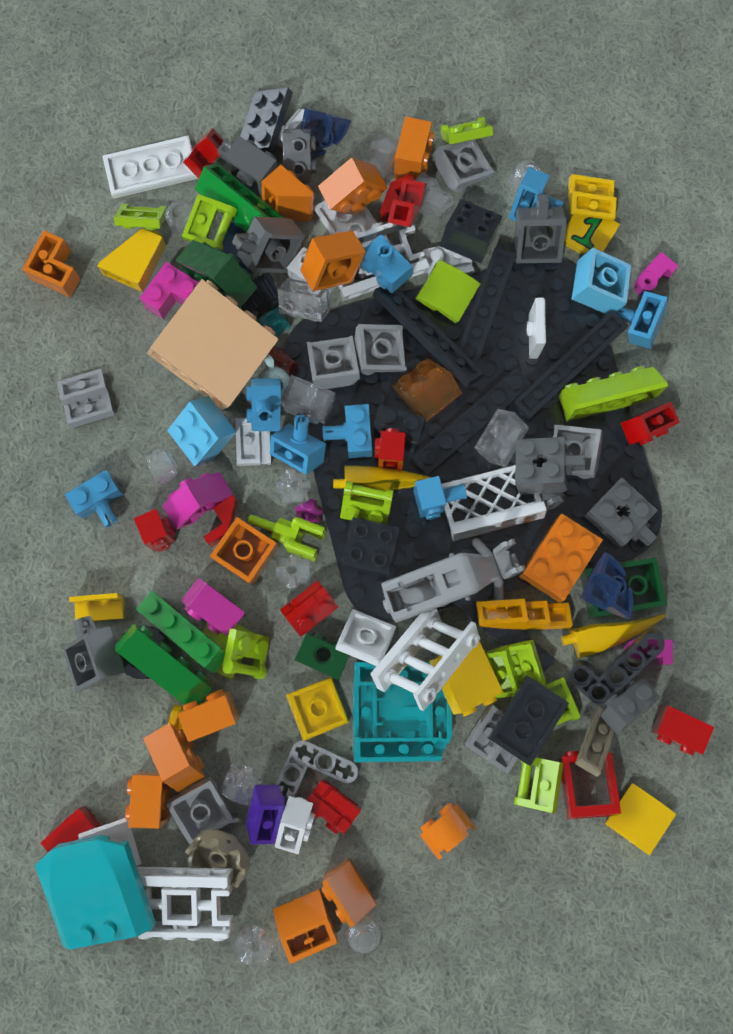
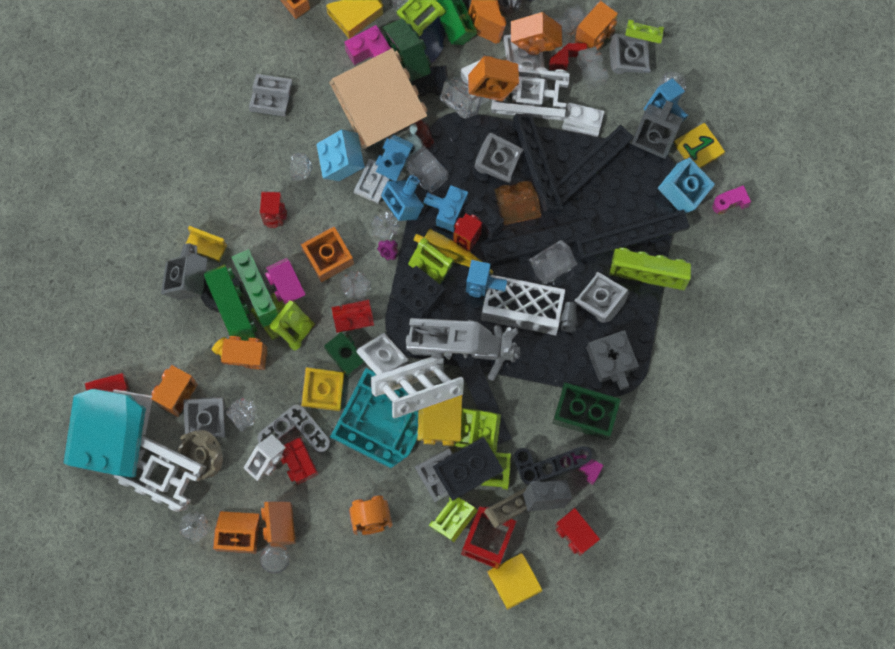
camera: 25 degrees right, 5 degrees down
(95, 497) = (242, 166): dark azure brick -> none
(174, 757) = (206, 370): orange brick -> none
(195, 498) = (312, 200): dark pink brick -> none
(226, 512) = (329, 220): red slope -> none
(265, 814) = (247, 439): dark purple brick -> none
(269, 244) = (455, 46): dark grey hinge -> none
(275, 321) = (433, 104): teal tile -> none
(292, 534) = (368, 258): lime plant -> none
(333, 362) = (459, 152): light grey slope -> none
(386, 264) = (532, 99): dark azure brick -> none
(410, 202) = (572, 65): red slope -> none
(448, 290) = (570, 140): lime slope -> none
(470, 231) = (608, 105): black brick -> none
(523, 615) = (502, 394): light orange slope -> none
(536, 328) = (618, 196): white plate -> none
(555, 462) = (571, 294): dark grey hinge -> none
(560, 558) = (551, 367): orange brick -> none
(591, 197) = (713, 122): yellow slope -> none
(600, 637) = (554, 440): yellow piece -> none
(608, 588) = (573, 403): dark blue brick -> none
(645, 320) = (705, 229): dark azure brick -> none
(650, 423) = (668, 303): red brick -> none

